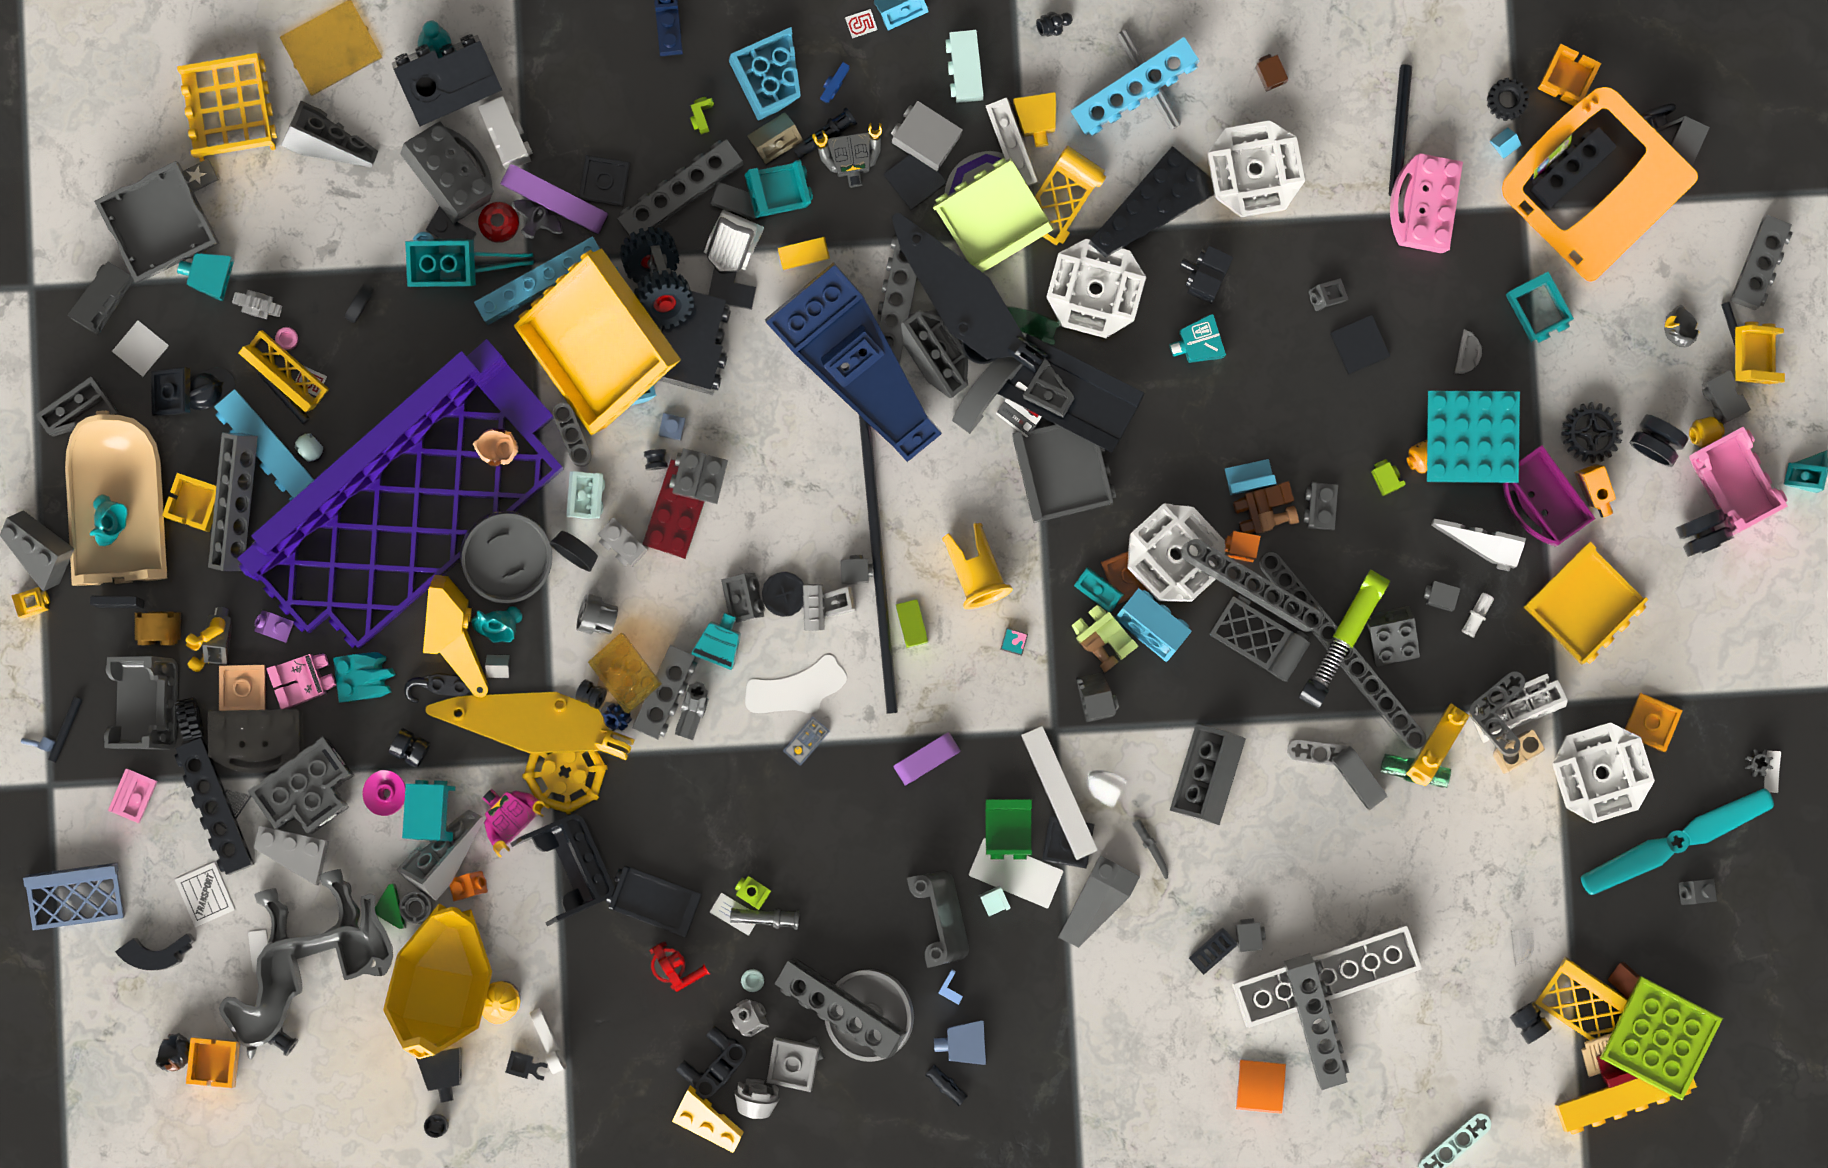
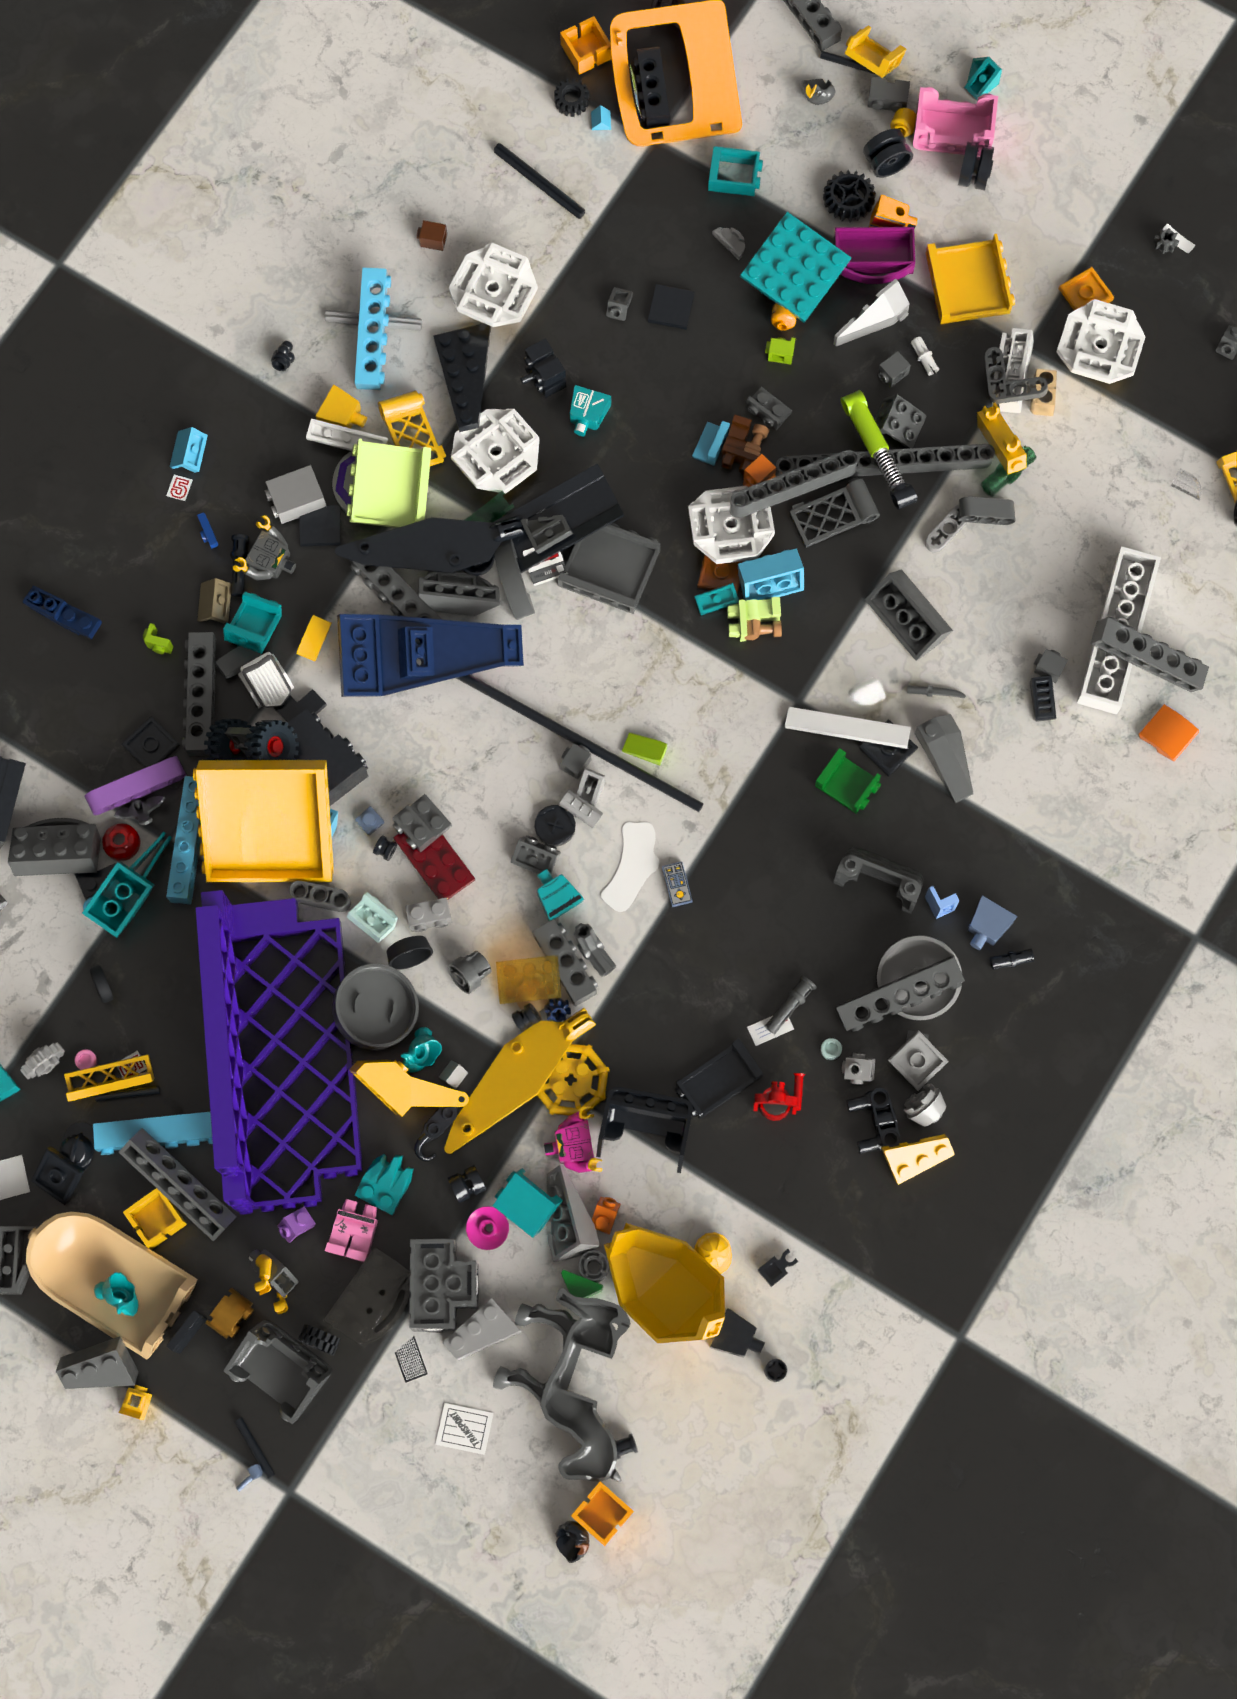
camera: 50 degrees left, 10 degrees down
(73, 876) = (372, 1529): sand blue fence -> none
(132, 795) = (346, 1429): bright pink plate -> none
(143, 958) = (485, 1508): black arch -> none
(241, 858) = (348, 1352): black brick -> none
(242, 687) = (324, 1282): light nougat plate -> none
(257, 942) = (535, 1415): white sticker -> none
(308, 447) = (180, 1100): light aqua piece -> none
(496, 446) = (287, 952): light nougat hair -> none
(505, 132) = (59, 789): white wedge -> none
(554, 1056) = (788, 1237): white beam -> none
(761, 892) = (773, 1002): lime brick -> none
(768, 73) = (164, 572): medium azure wedge -> none
(927, 758) = (754, 805): medium lavender beam -> none
(964, 66) = (266, 435): light aqua brick -> none
(978, 575) = (644, 674): yellow piece -> none
(994, 901) = (896, 827): light aqua panel -> none
(1014, 641) = (711, 685): tile -> none
(1023, 878) = (890, 800): white sticker -> none
(1096, 697) = (798, 650): dark grey wedge -> none
(1434, 227) = (612, 214): bright pink piece -> none
(1657, 851) = (1183, 350): teal piece -> none

